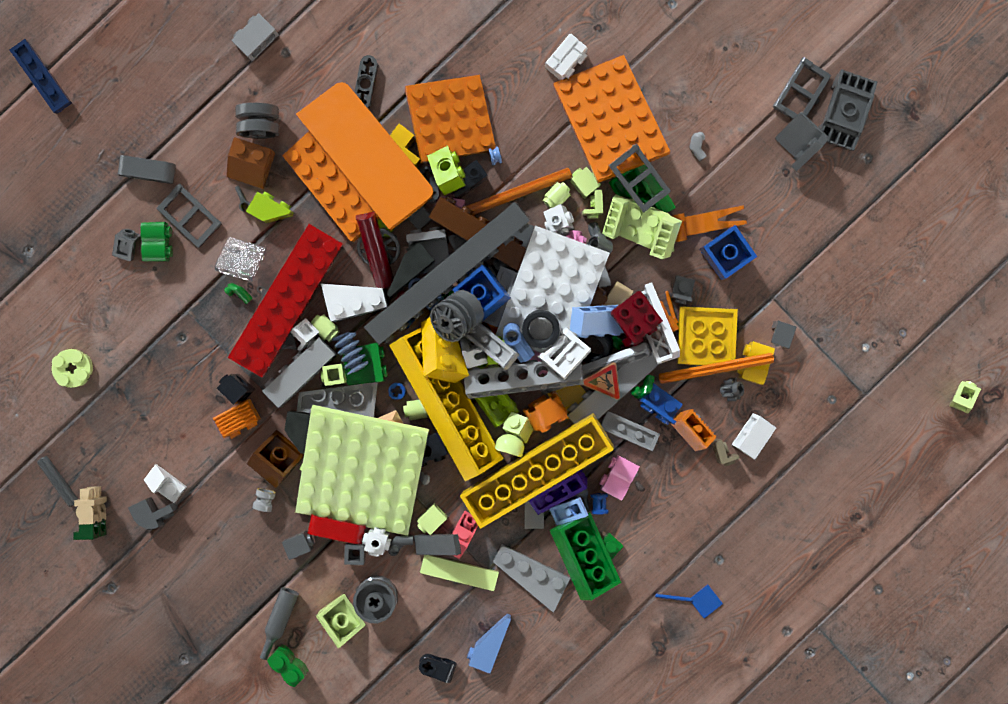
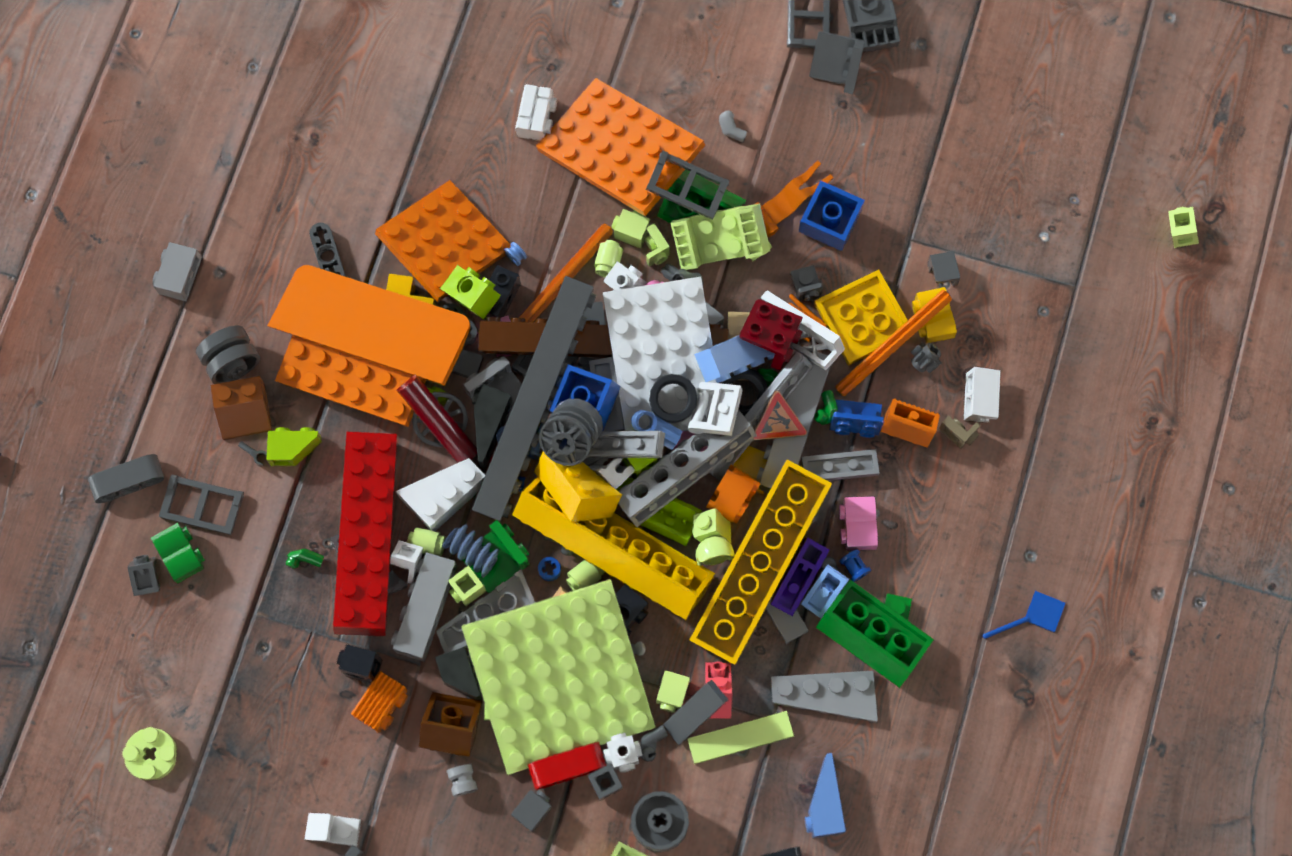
camera: 25 degrees left, 15 degrees down
(240, 259) = (287, 517): clear plate -> none

